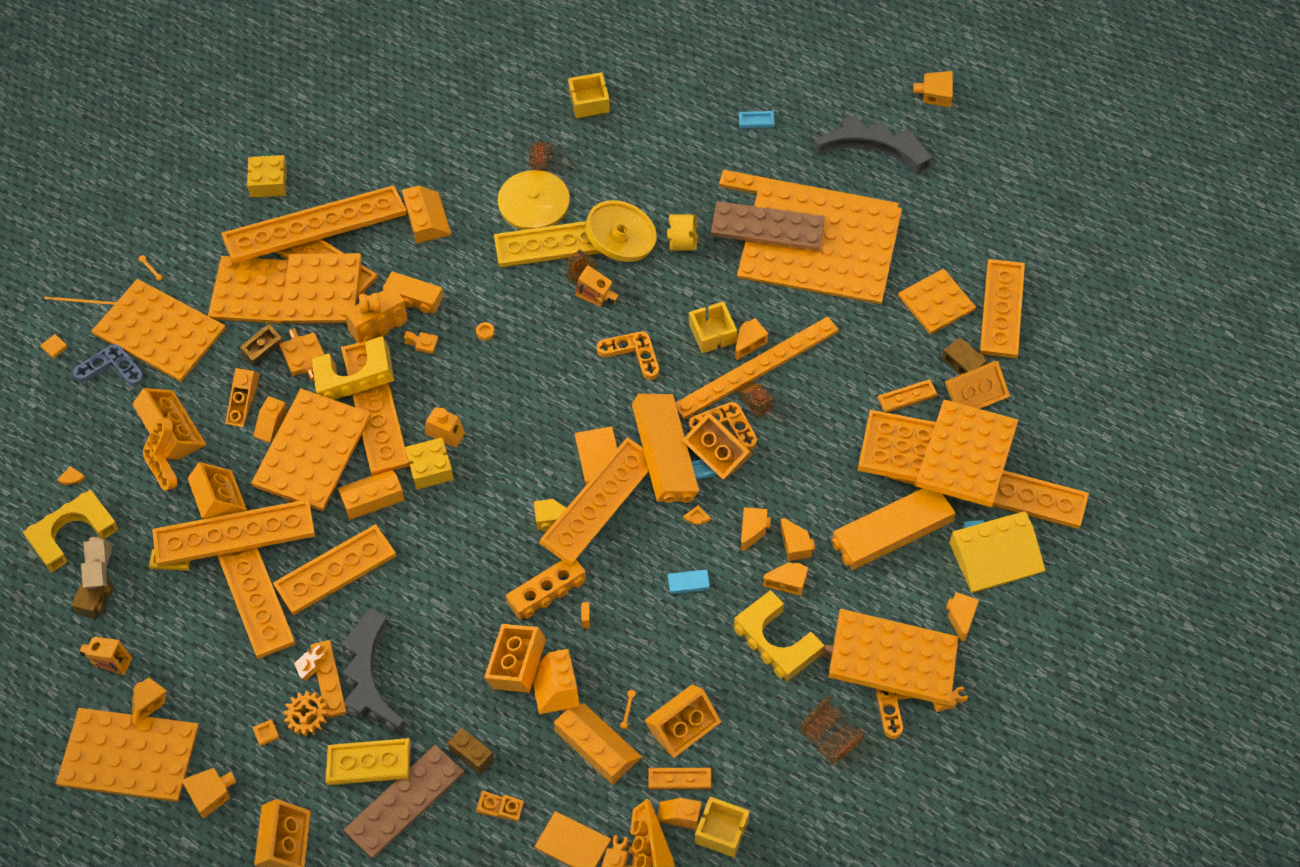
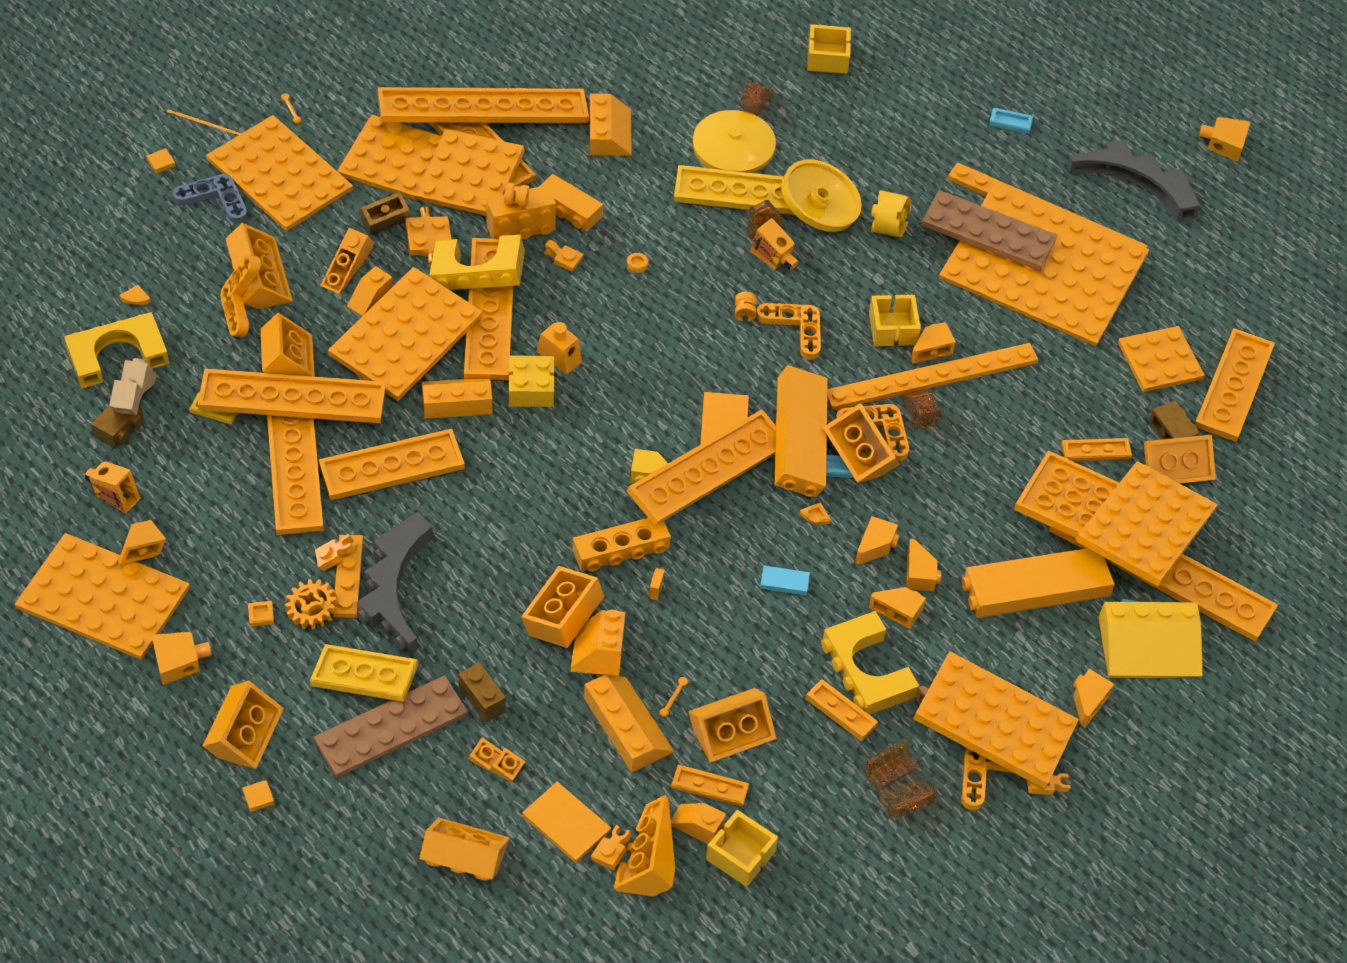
camera: 10 degrees right, 5 degrees down
(267, 176) = (447, 46): yellow piece -> none
(586, 346) = (745, 306): none -> light orange wheel
(767, 682) = (841, 710): none -> light orange plate

